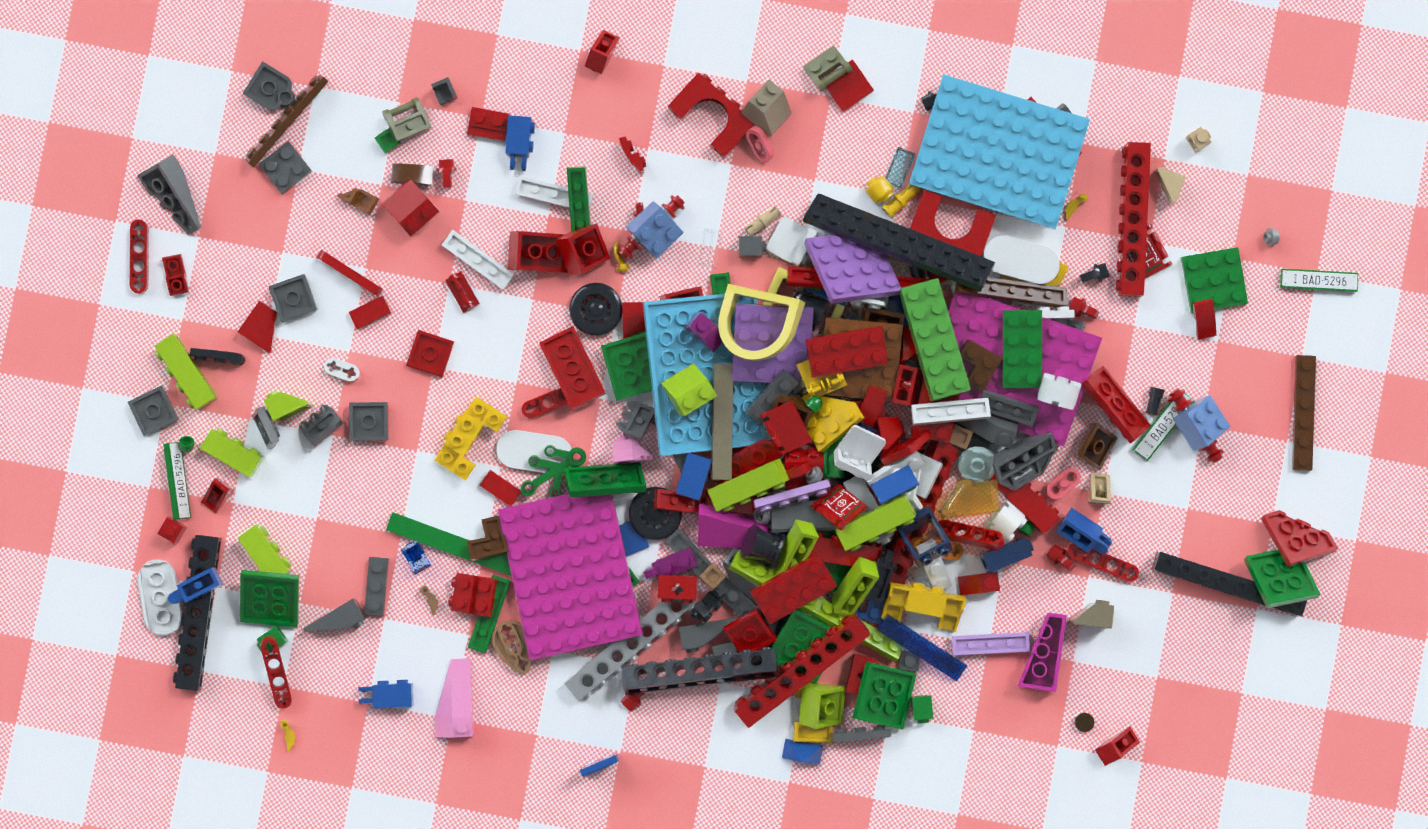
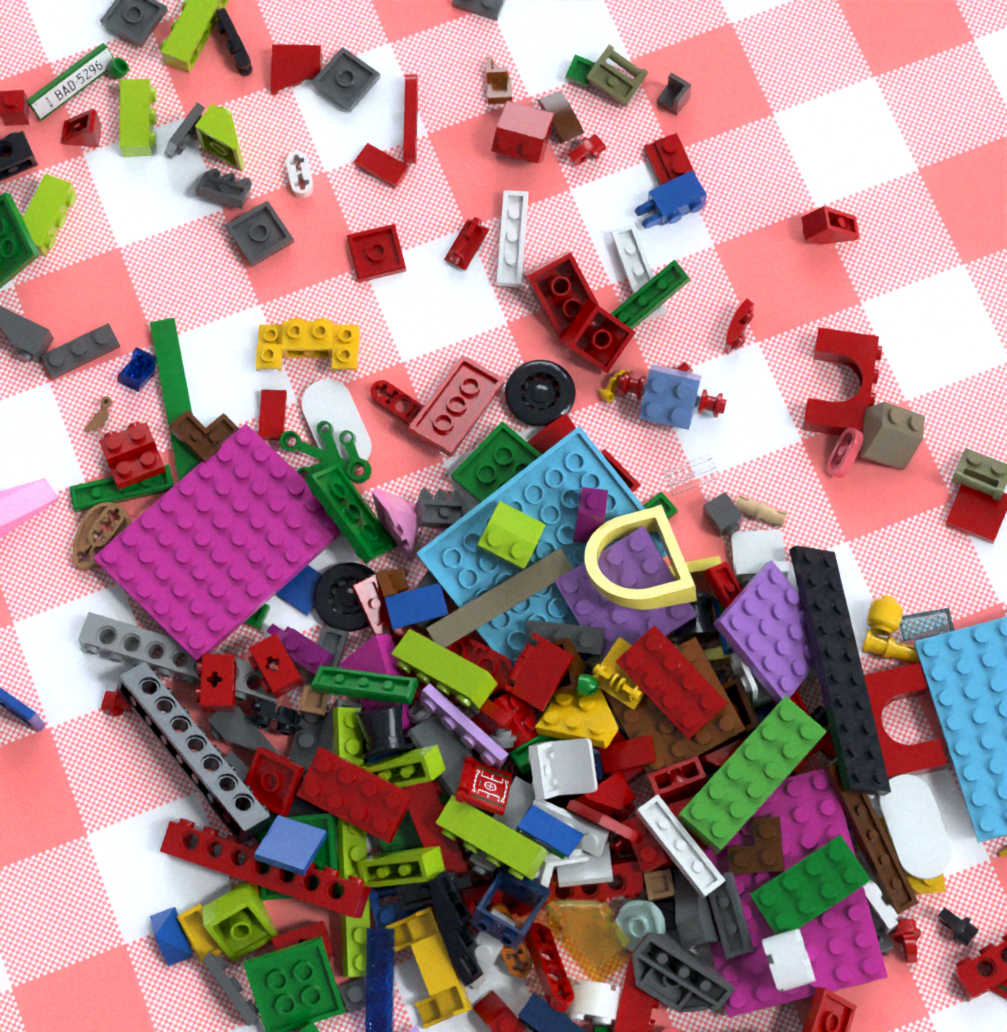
camera: 60 degrees right, 15 degrees down
(659, 620) = (224, 695): none -> red brick
(665, 480) = (393, 581): none -> dark orange slope
(726, 540) = (364, 685): none -> green tile
(799, 646) = (290, 845): none -> tile
(907, 575) = (451, 917): none -> black slope

